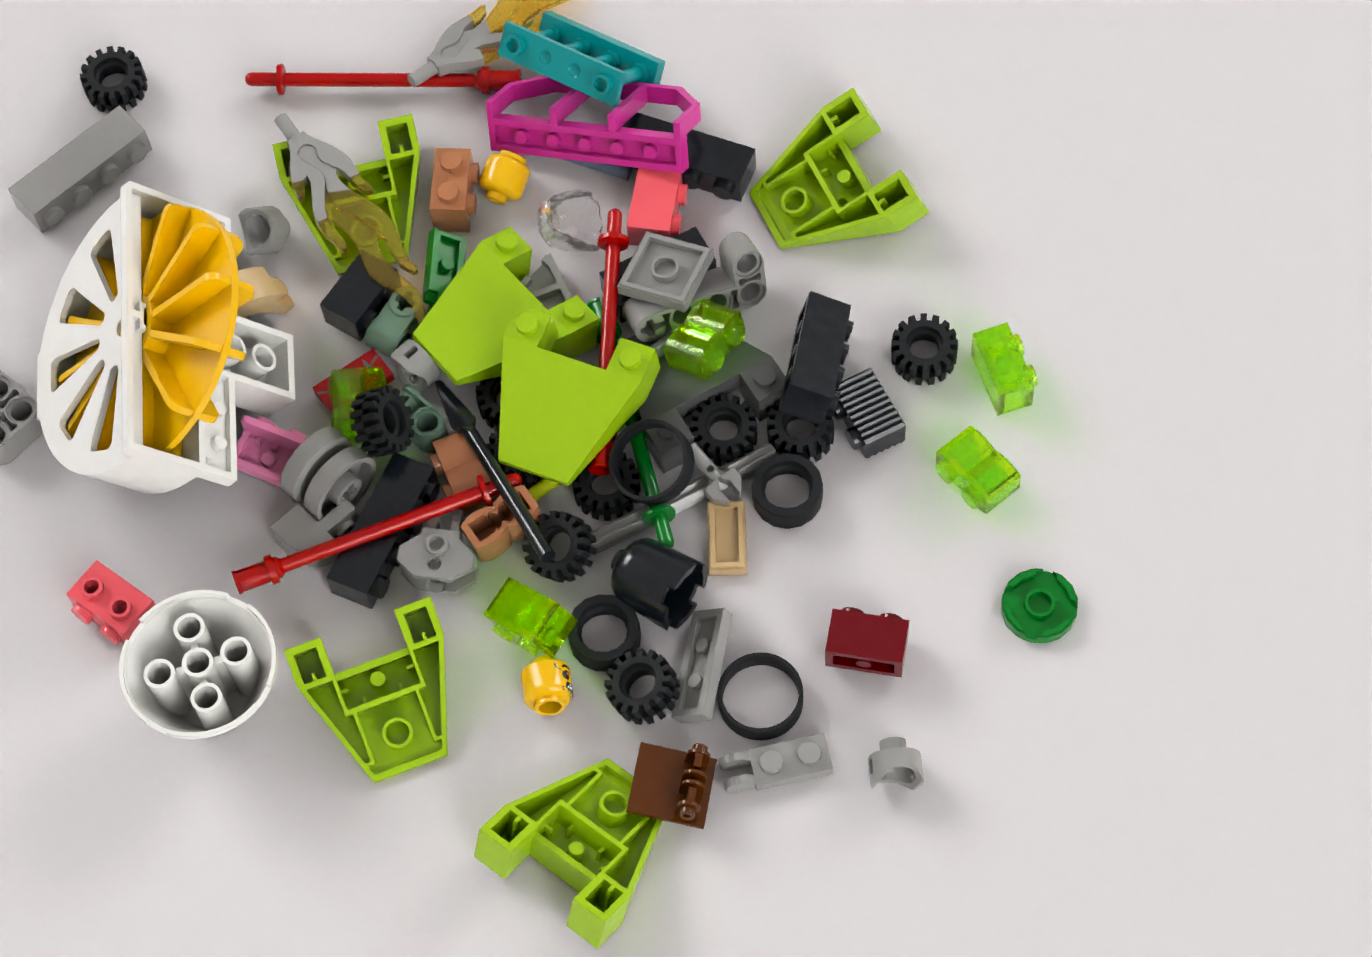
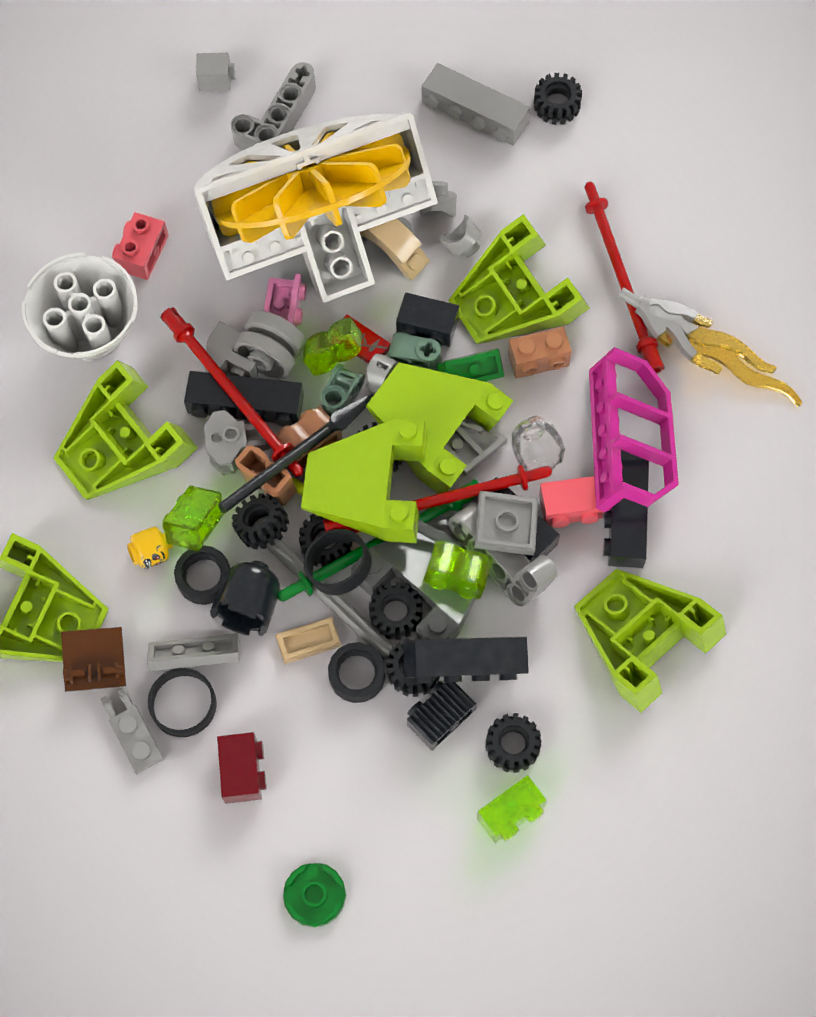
camera: 70 degrees right, 5 degrees up
(354, 214) = (513, 248): clear yellow piece -> none
(382, 421) = (317, 376): black tyre -> none
(504, 177) = (563, 385): yellow head -> none
(579, 57) = (699, 408): teal fence -> none
(655, 700) = (169, 627): black tyre -> none
(715, 476) = (349, 614): light grey bar -> none
(896, 764) = (146, 816): light grey piece -> none
(977, 470) = (415, 813): clear neon green brick -> none

